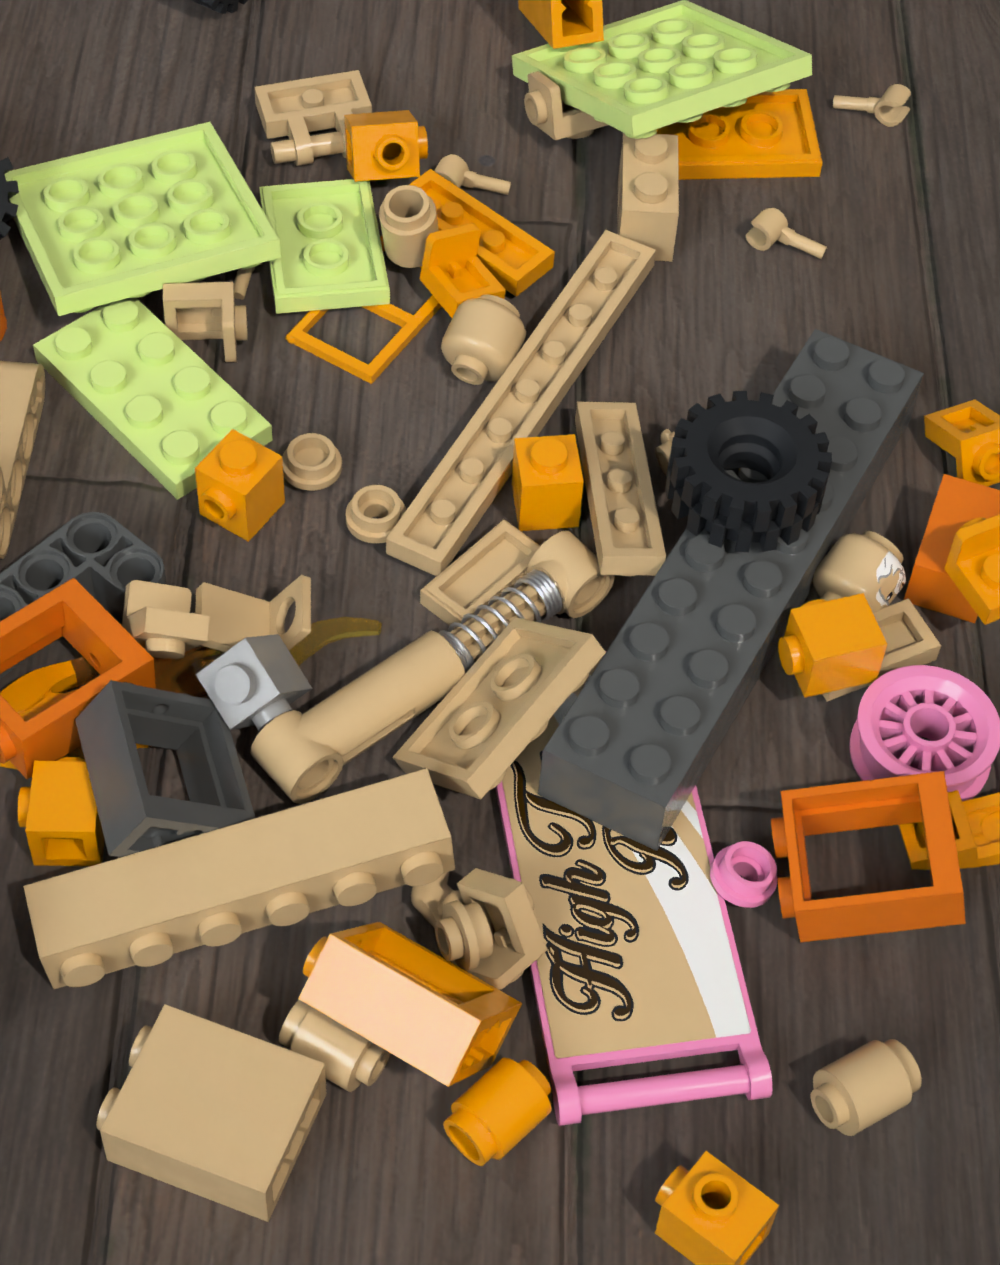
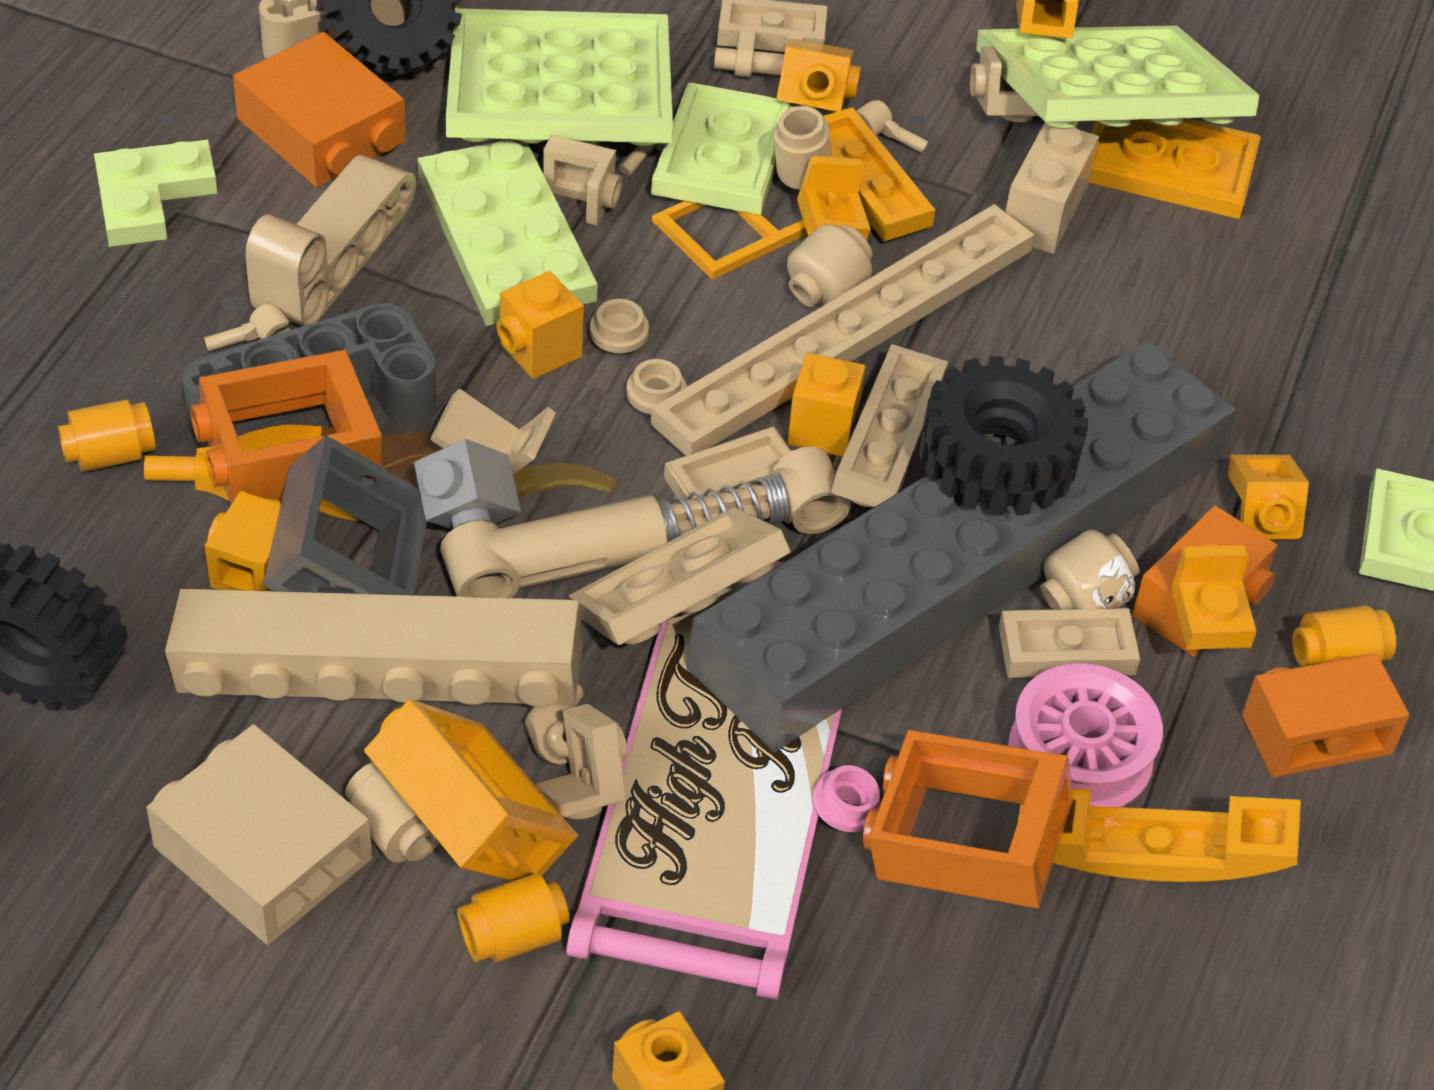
camera: 20 degrees right, 5 degrees down
(162, 620) = (409, 409): tan bracket -> none
(464, 934) = (550, 757): tan plate -> none
(773, 226) = (1165, 247): tan hand -> none
(832, 645) = (1022, 620): light orange brick -> none
(865, 1086) = (869, 1017): tan brick -> none
(887, 108) = (1334, 174): tan hand -> none

